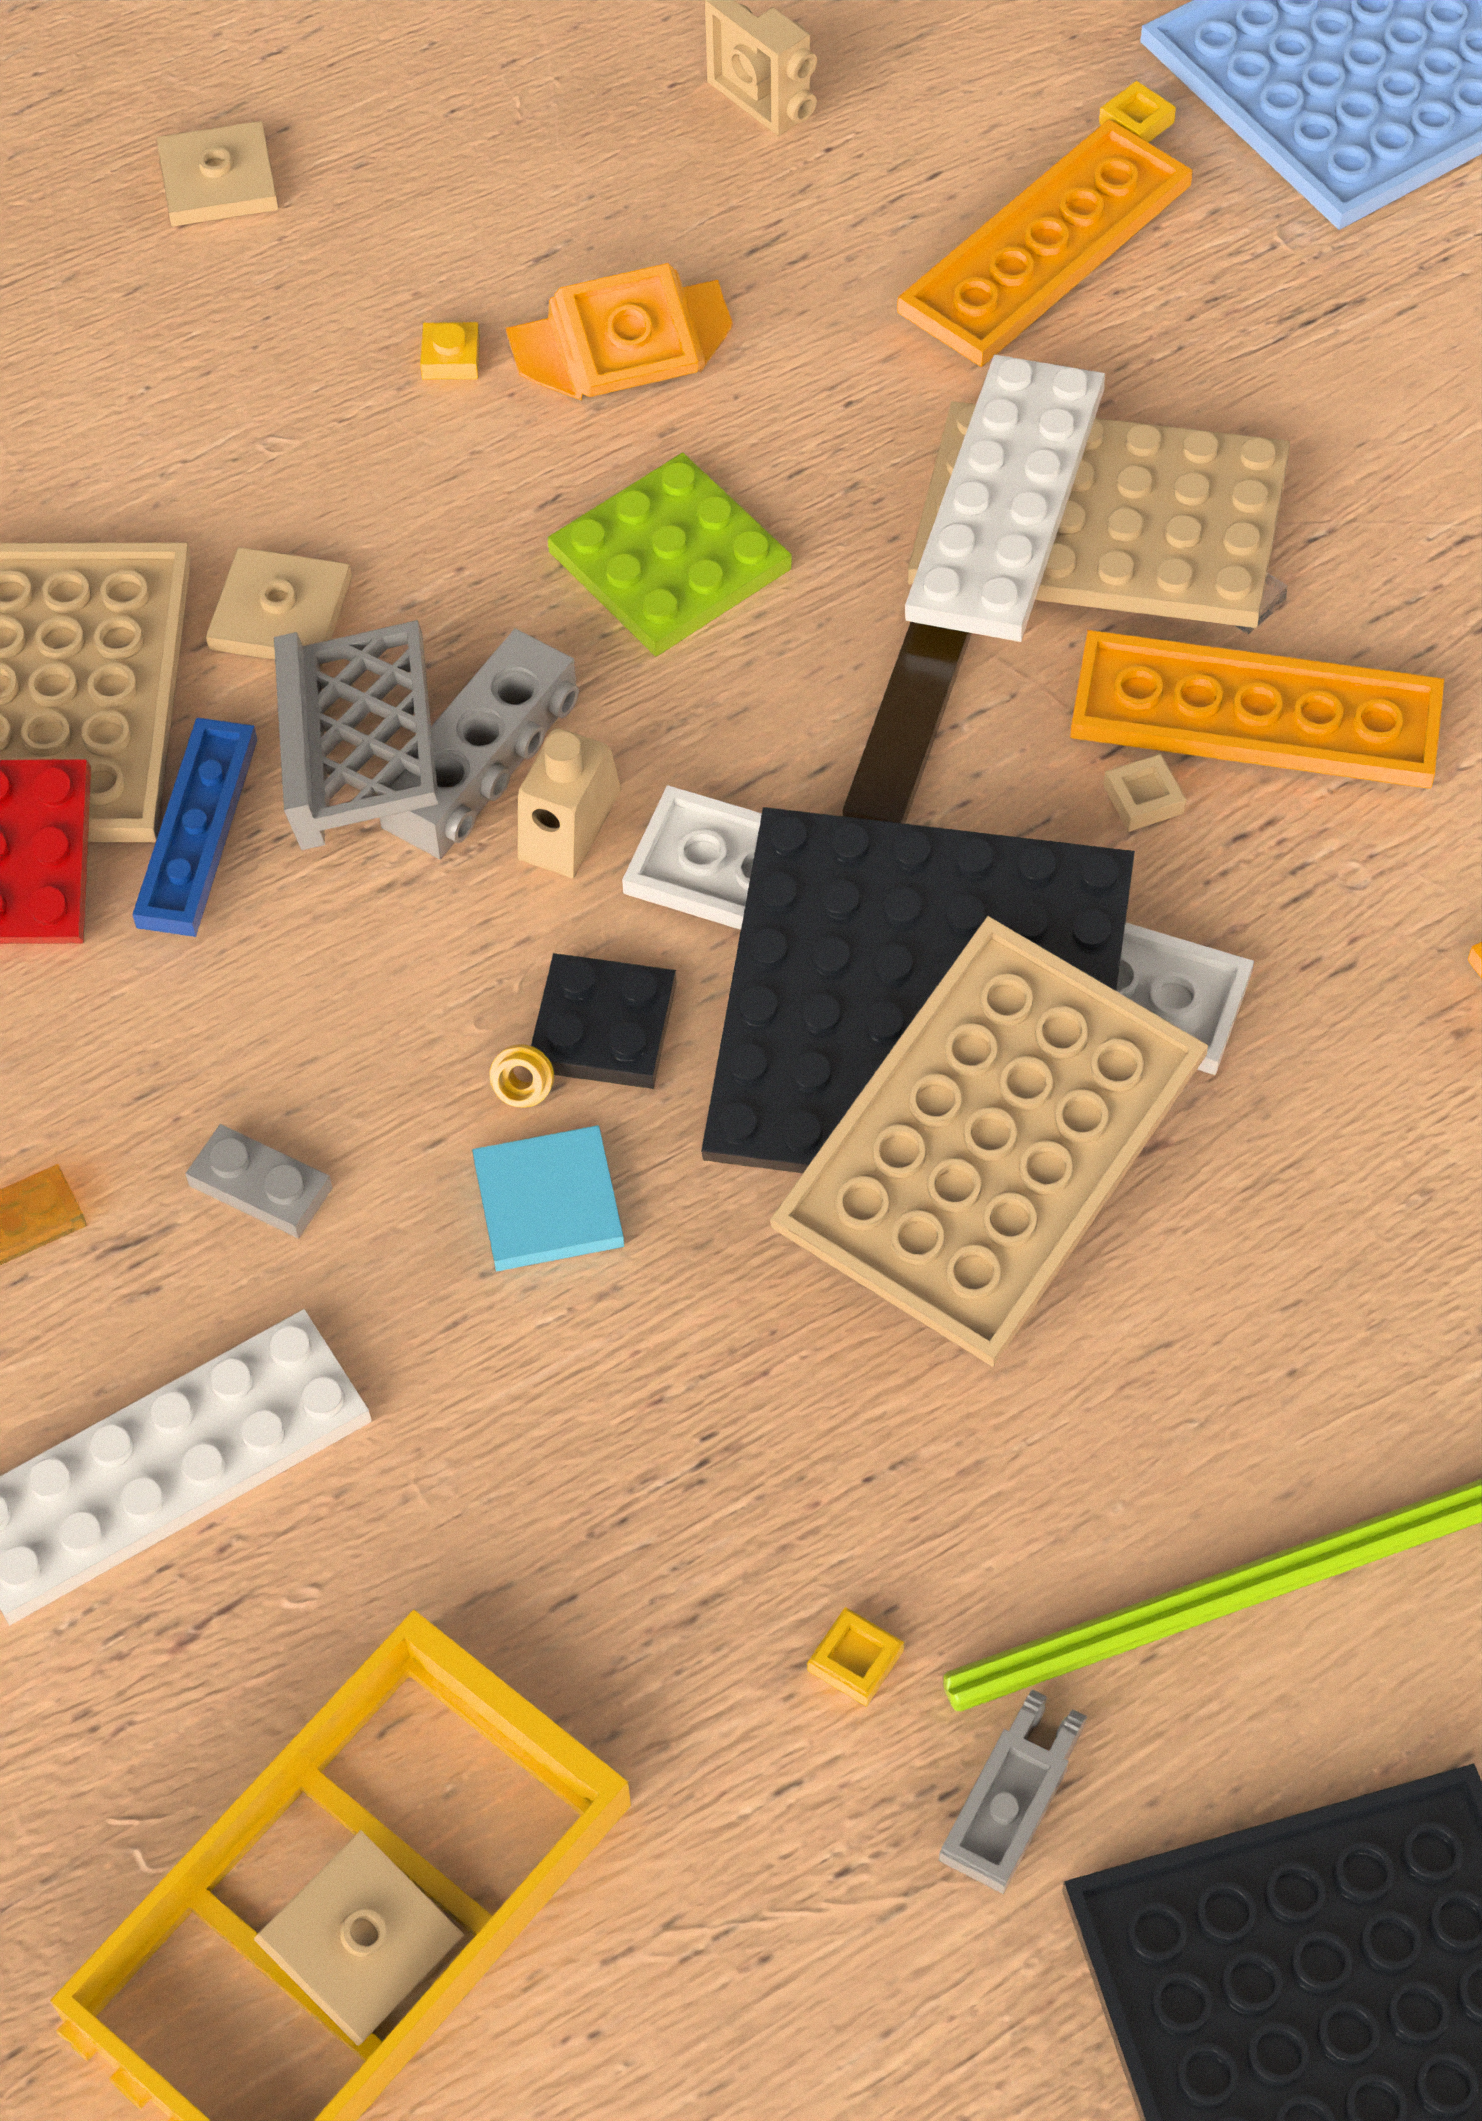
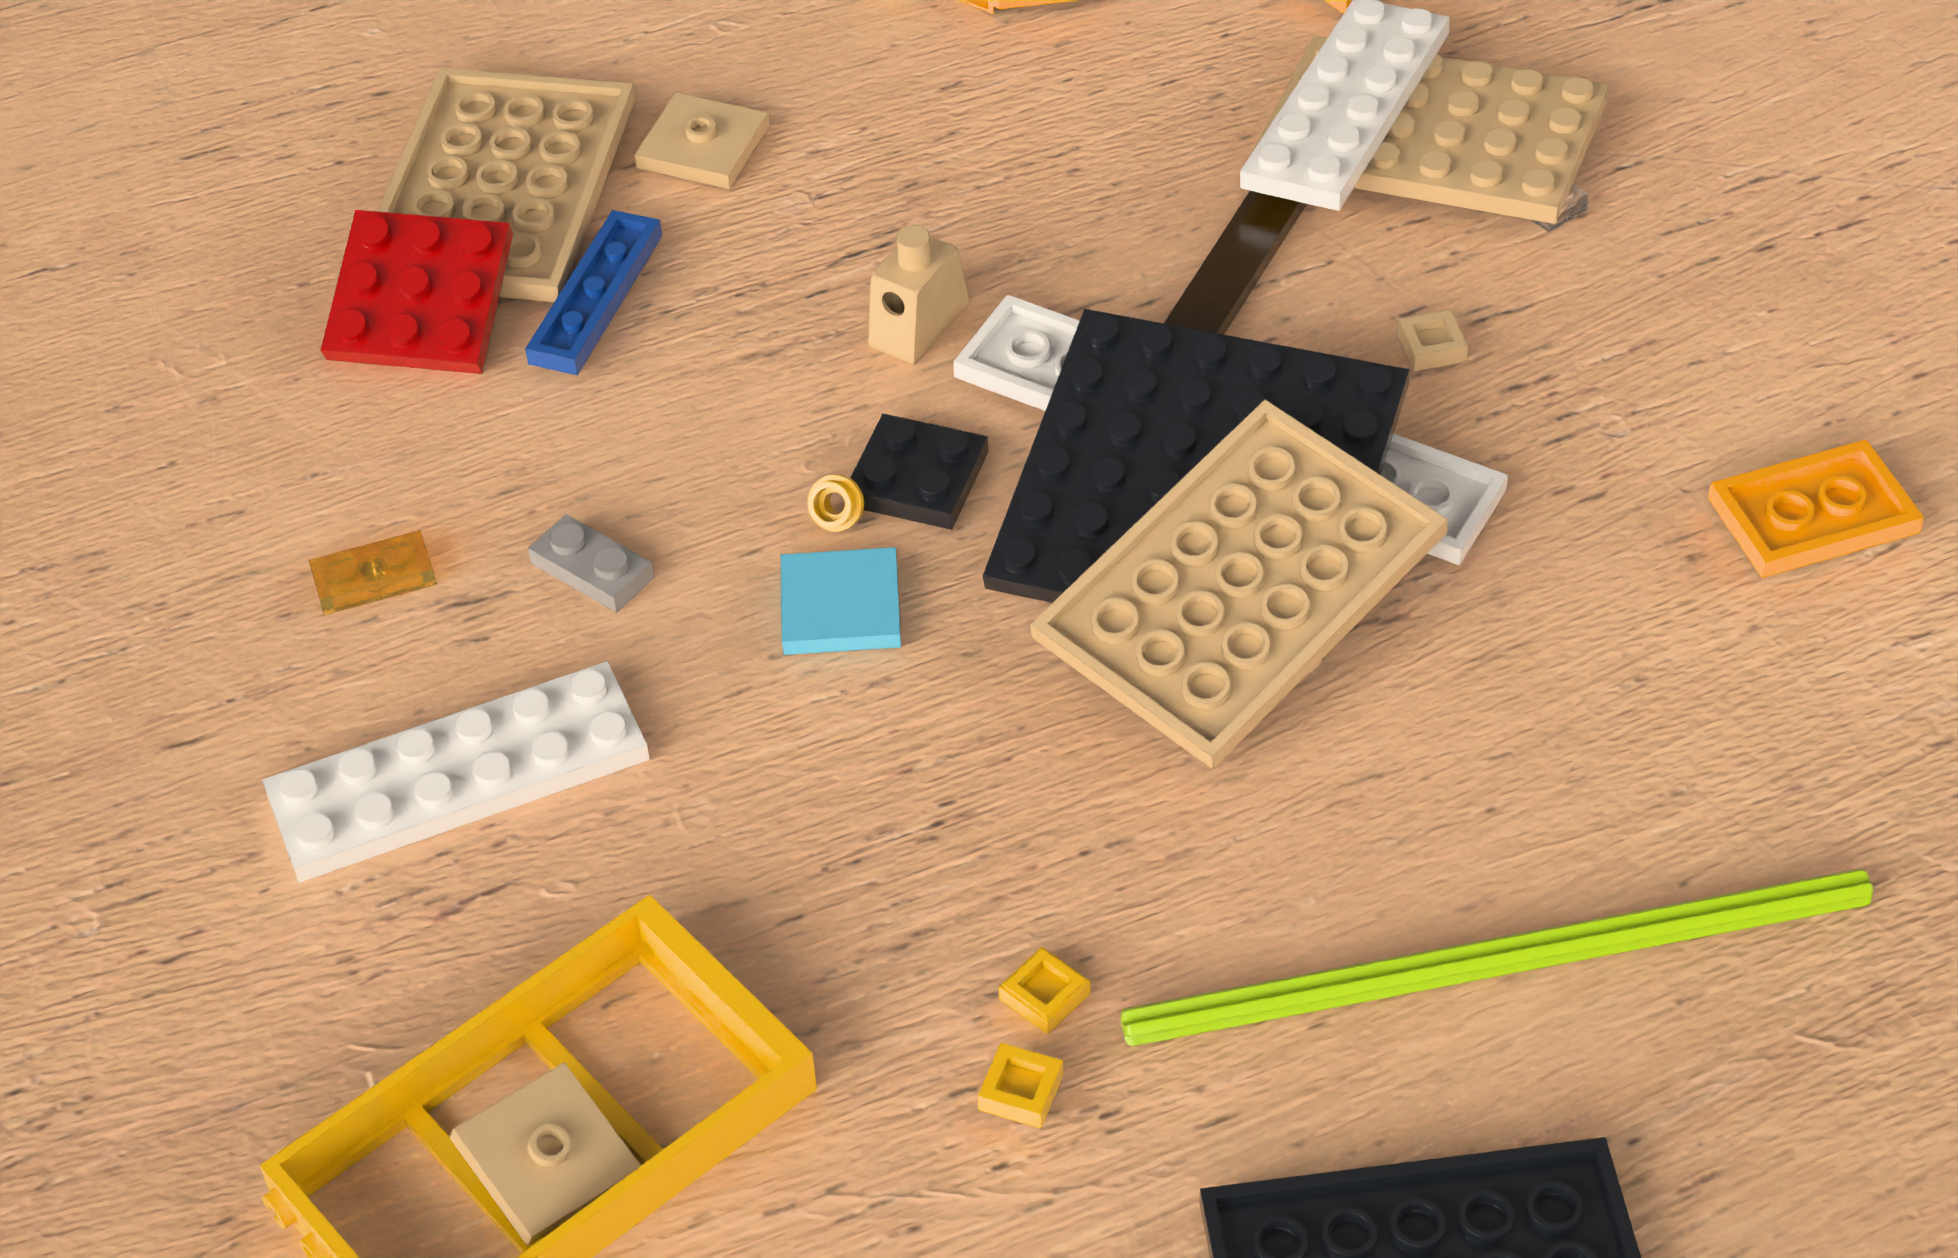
camera: 10 degrees right, 10 degrees down
(307, 745) = (704, 225): light grey fence -> none
(486, 737) = (839, 253): light grey brick -> none
(669, 554) = (1046, 130): lime plate -> none
(852, 1779) = (1020, 1085): none -> yellow plate
(1010, 1798) = (1165, 1116): light grey hinge -> none
(1258, 709) = (1548, 286): light orange plate -> none

